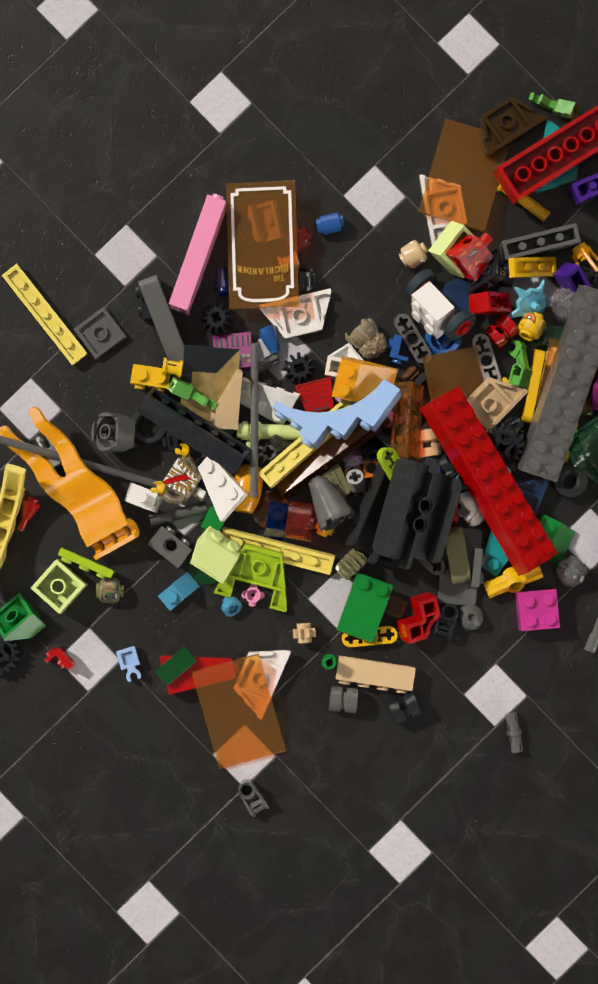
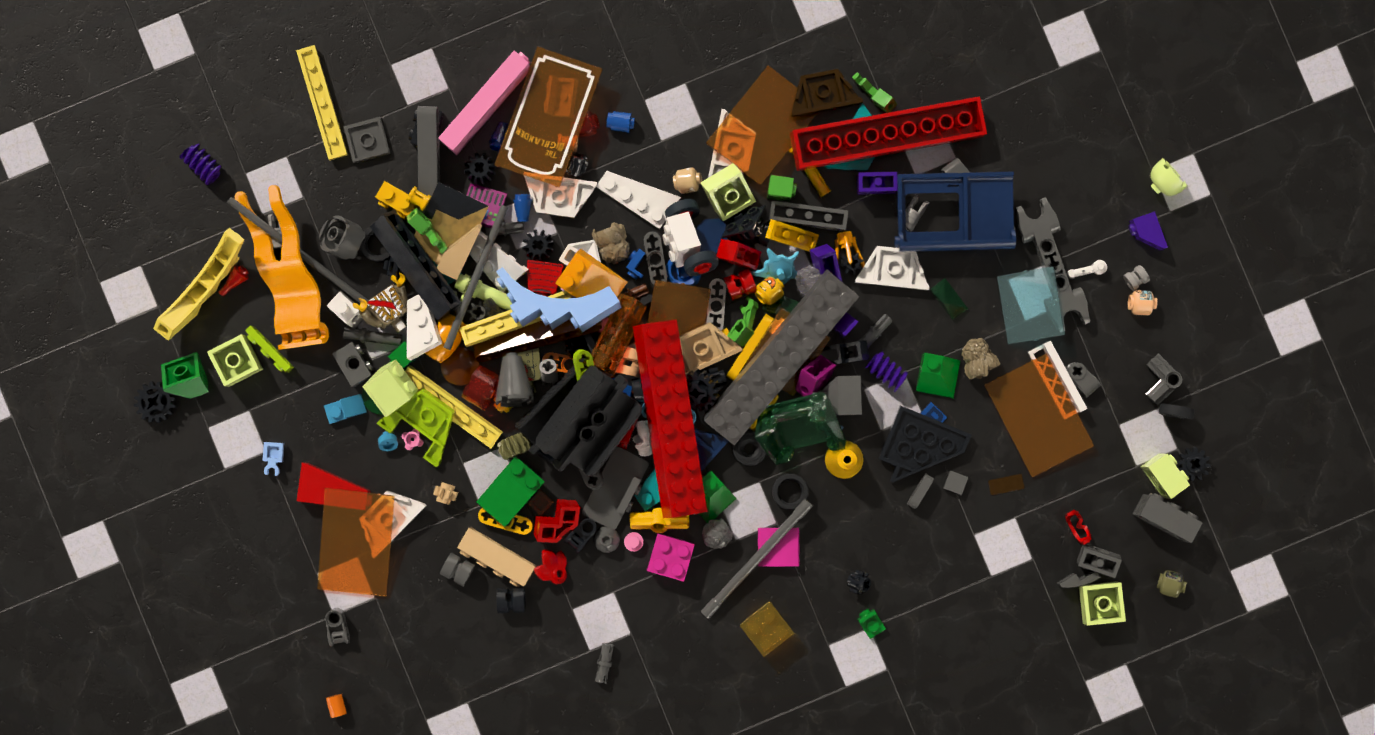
camera: 25 degrees right, 0 degrees up
(63, 660) = (213, 430): red bracket -> none
(109, 590) = (280, 383): head -> none
(176, 665) = (313, 476): dark green tile -> none
(276, 520) = (459, 378): clear blue slope -> none
(280, 871) = (336, 705): none -> orange piece
(329, 666) = (452, 528): green pin -> none
(353, 459) = (554, 349): clear tile -> none
(375, 288) = (640, 198): none -> white wing
(430, 659) = (552, 564): none -> red plate
(457, 556) = (615, 476): olive beam -> none
(471, 255) = (737, 203): red torso -> none
(496, 609) = (633, 541): none -> bright pink plate
(504, 226) = (781, 188): none -> bright green brick

